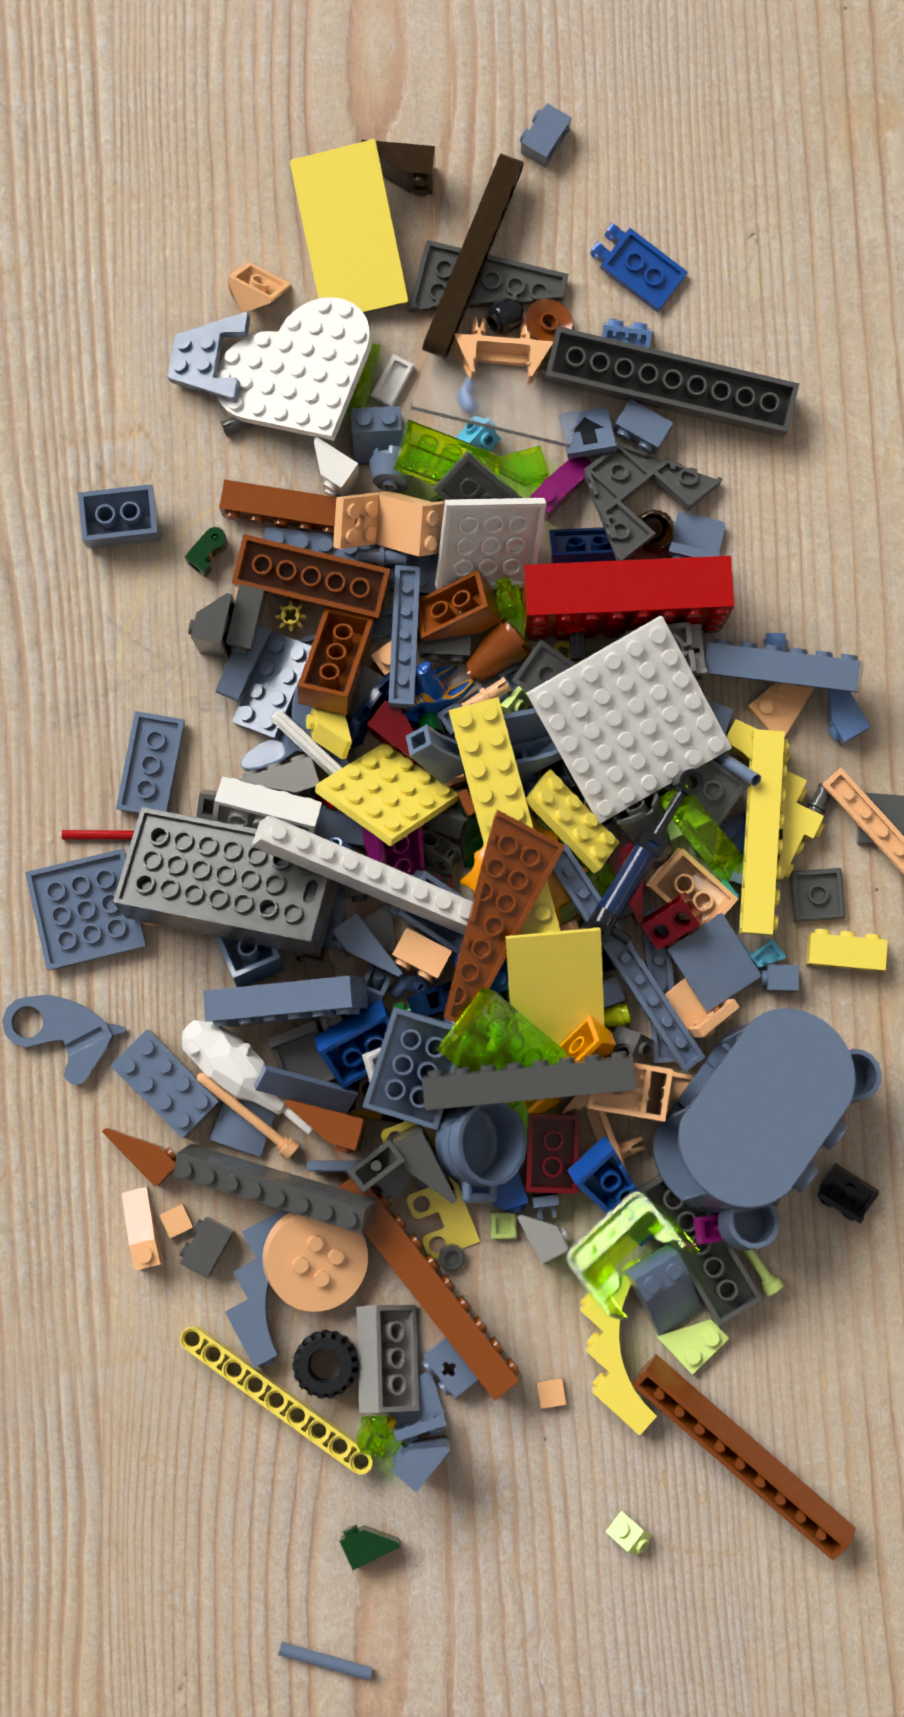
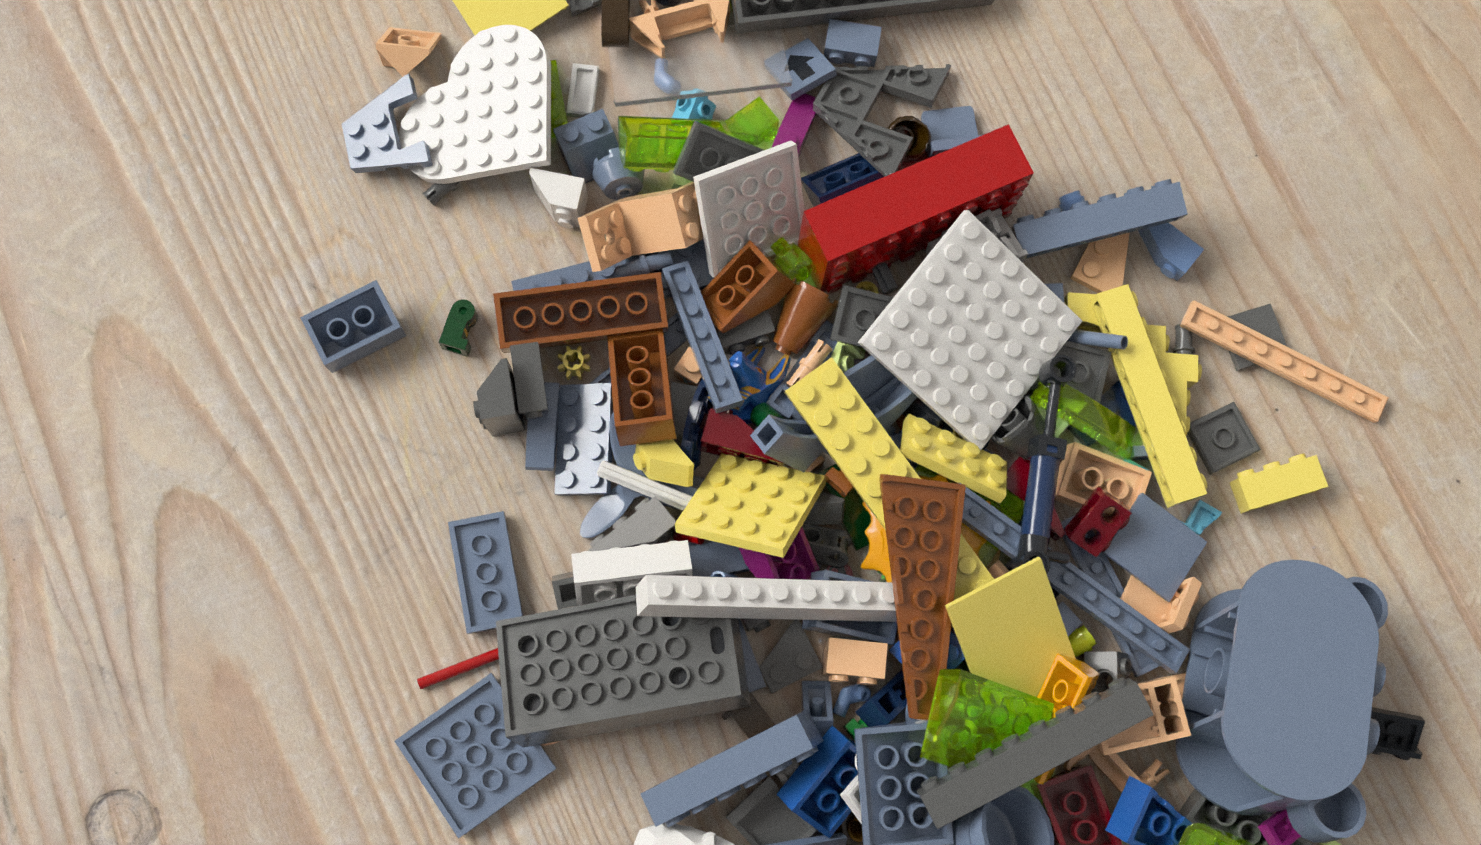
camera: 30 degrees left, 5 degrees down
(249, 961) = (674, 741): sand blue brick -> none
(278, 506) = (519, 255): dark orange brick -> none
(361, 943) = (787, 673): sand blue slope -> none
(780, 978) = (1226, 536): sand blue brick -> none

